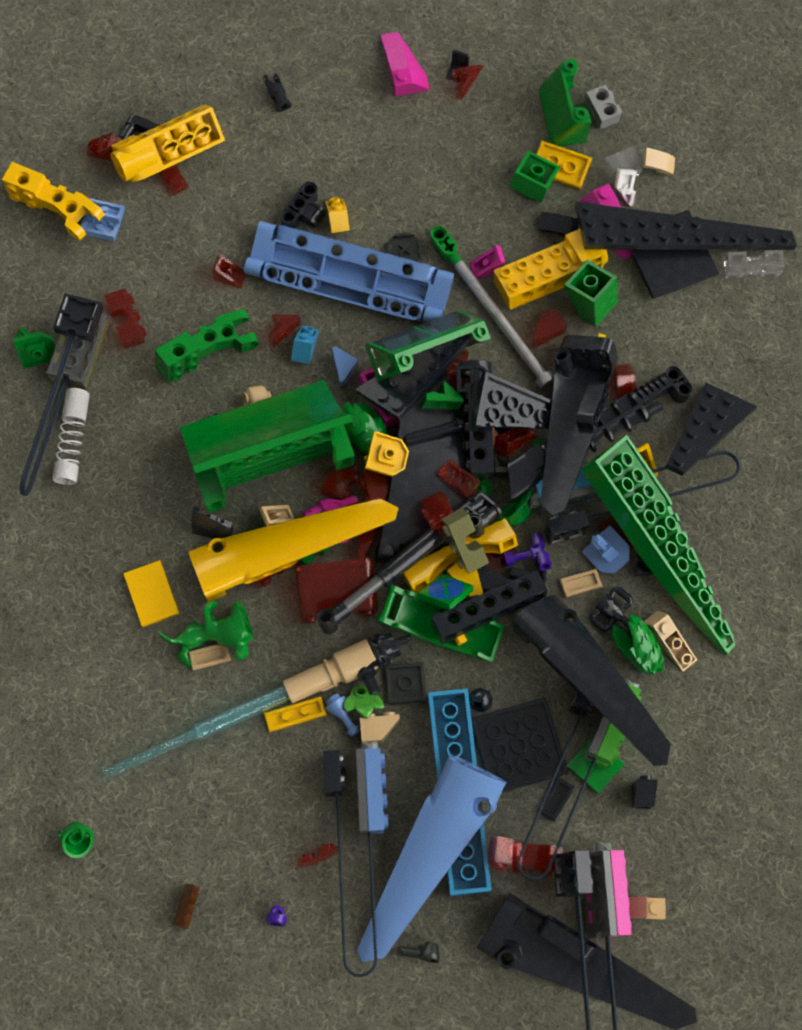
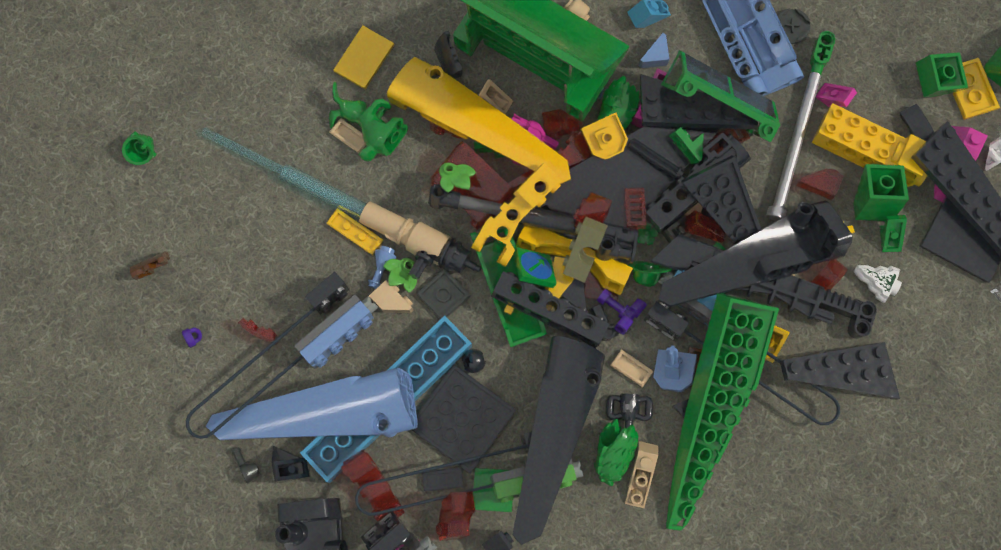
camera: 55 degrees right, 5 degrees up
(324, 592) = (457, 176): none -> bright green plate
(390, 556) = (525, 200): none -> yellow brick
(450, 916) = (288, 466): none -> black slope
(596, 808) = (455, 516): none -> clear red brick
(628, 309) = (893, 233): none -> green slope
(656, 347) = (880, 280): none -> white rock

